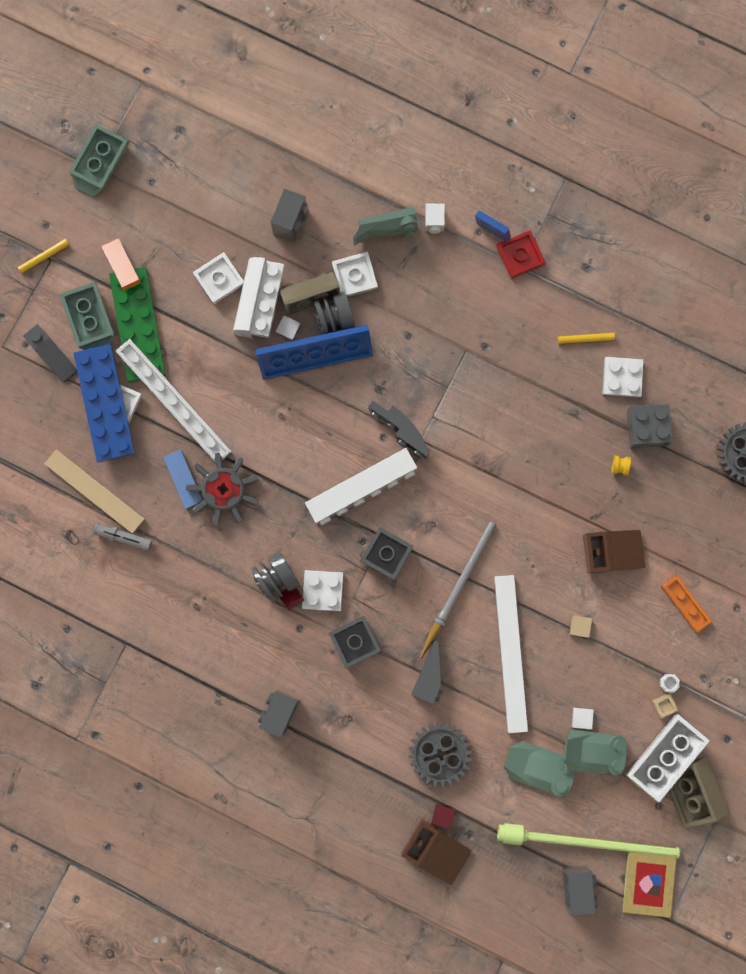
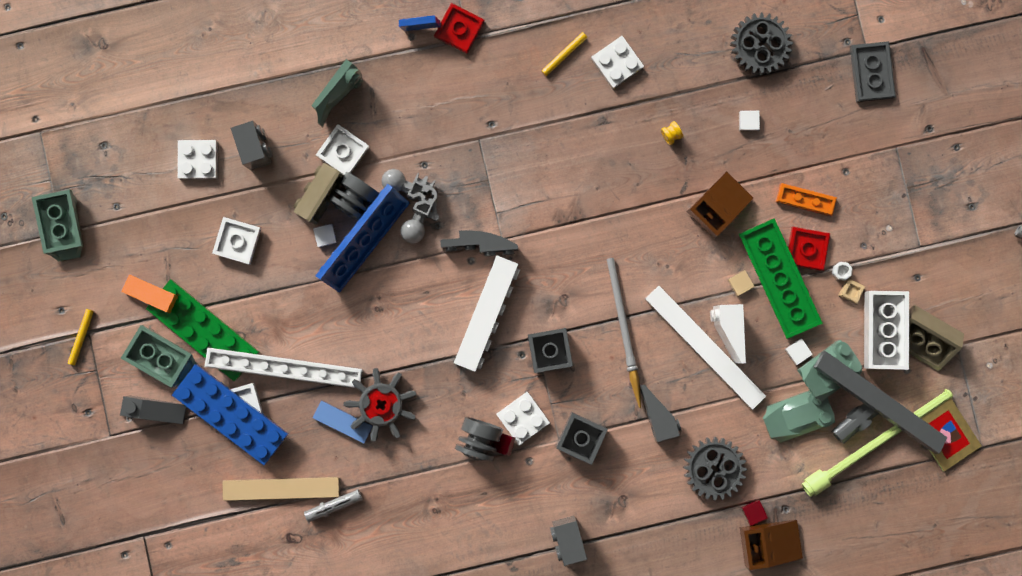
camera: 45 degrees left, 5 degrees up
(240, 195) = (197, 159): none -> white plate
(258, 298) = (282, 231): white brick -> none
(357, 376) = (413, 229): none -> light grey piece
(434, 218) = (368, 53): white brick -> none
(543, 650) = (730, 326): none -> white slope
(579, 890) = (901, 483): dark grey brick -> none
(587, 811) = (856, 420): none -> dark grey piece
(614, 648) = (780, 278): none -> green plate
(615, 811) = (880, 402): none -> dark grey tile
(649, 426) = (669, 84): dark grey brick -> none
(656, 643) = (809, 248): none -> red tile
(690, 505) = (749, 121): none -> white tile

